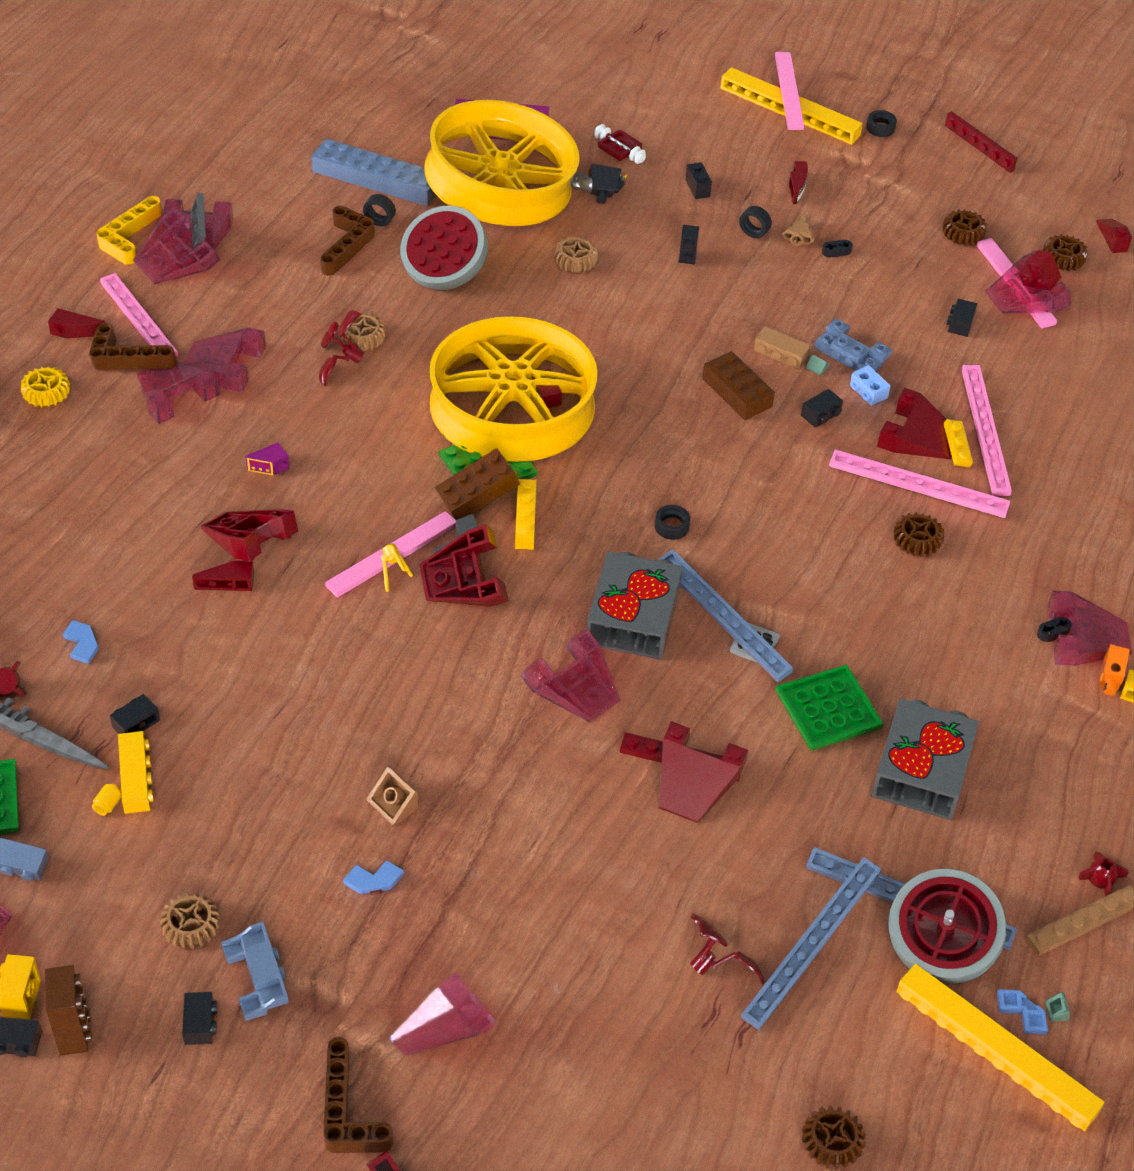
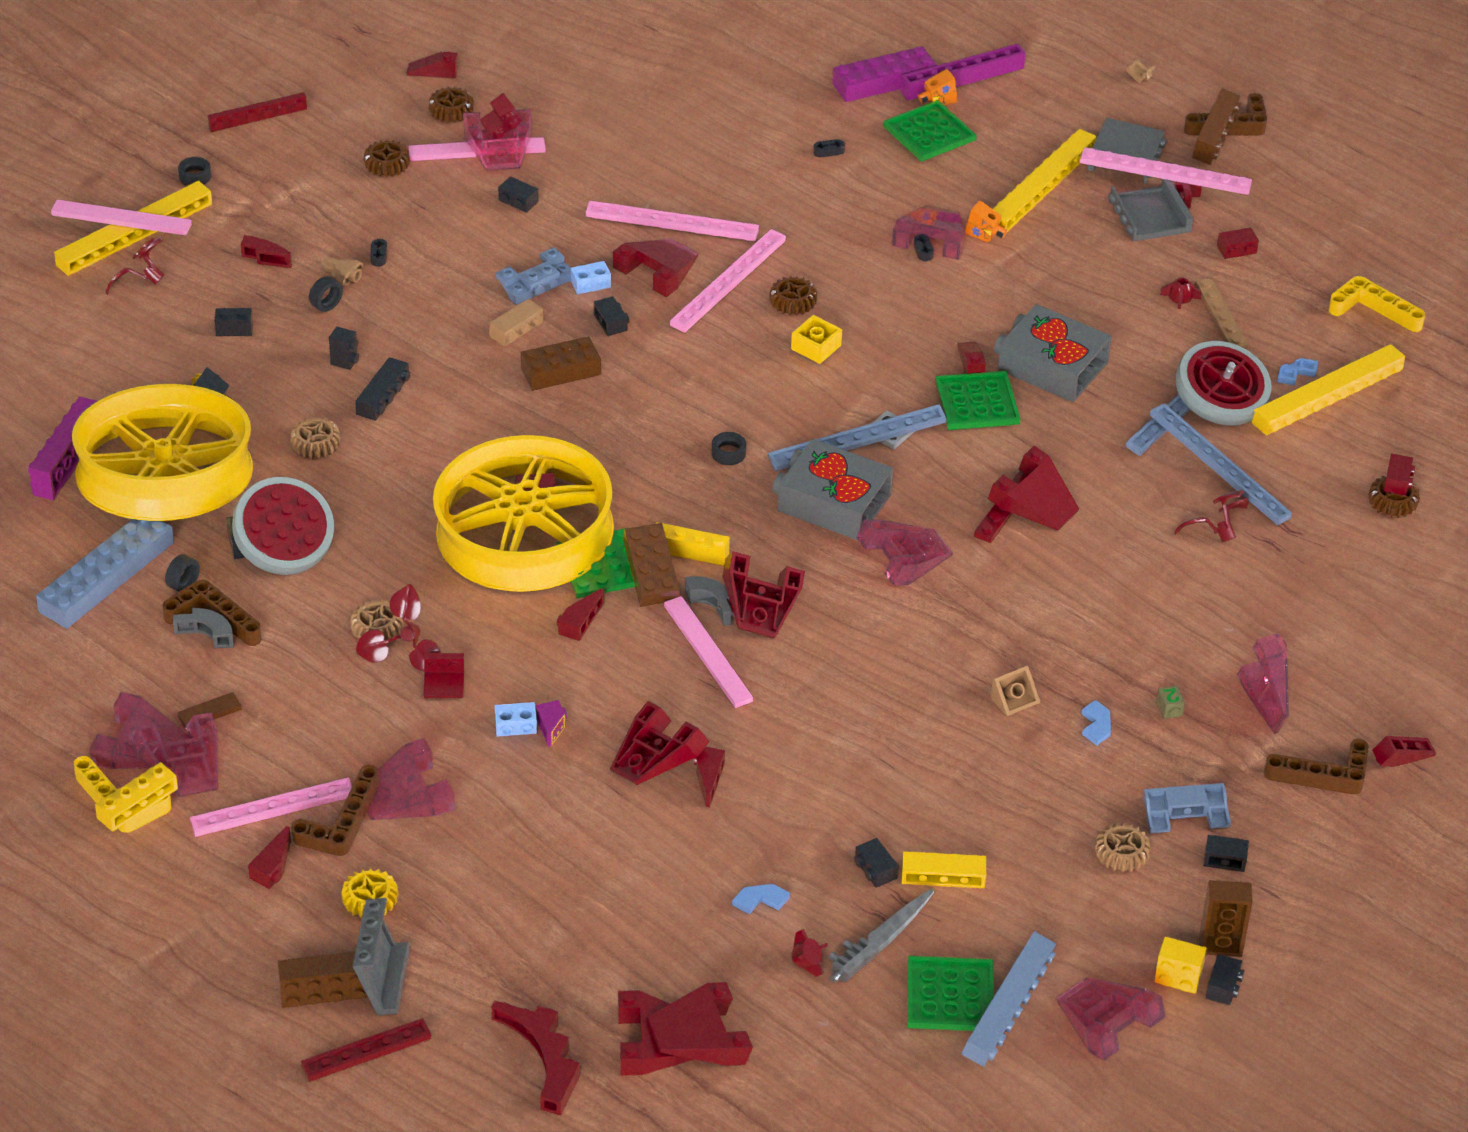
camera: 75 degrees left, 5 degrees down
(106, 799) = (972, 892): yellow brick -> none
(112, 230) = (136, 796): none -> yellow brick
(198, 221) = (170, 718): dark grey tile -> none
(222, 352) = (374, 739): clear pink wedge -> none
(237, 261) = (218, 707): none -> reddish brown tile
(264, 433) = (515, 719): none -> light blue brick
(305, 386) = (443, 675): none -> dark red bracket
(331, 236) = (206, 623): none -> dark grey arch
(393, 556) = (721, 643): yellow plant -> none
(407, 456) = (579, 616): none -> dark red slope
(414, 939) = (1170, 702): none -> olive brick
(619, 144) = (141, 369): dark red plate -> none
(655, 281) = (382, 389): none -> black brick
(737, 124) = (151, 270): none -> dark red plant
(817, 365) = (548, 305): sand green slope -> none
(852, 1127) = (1399, 474): none -> dark red brick
(855, 559) = (816, 339): none -> yellow brick
(887, 691) = (971, 357): none -> dark red slope
(958, 443) = (686, 241): yellow plate -> none
(1058, 1008) = (1299, 349): sand green slope -> none

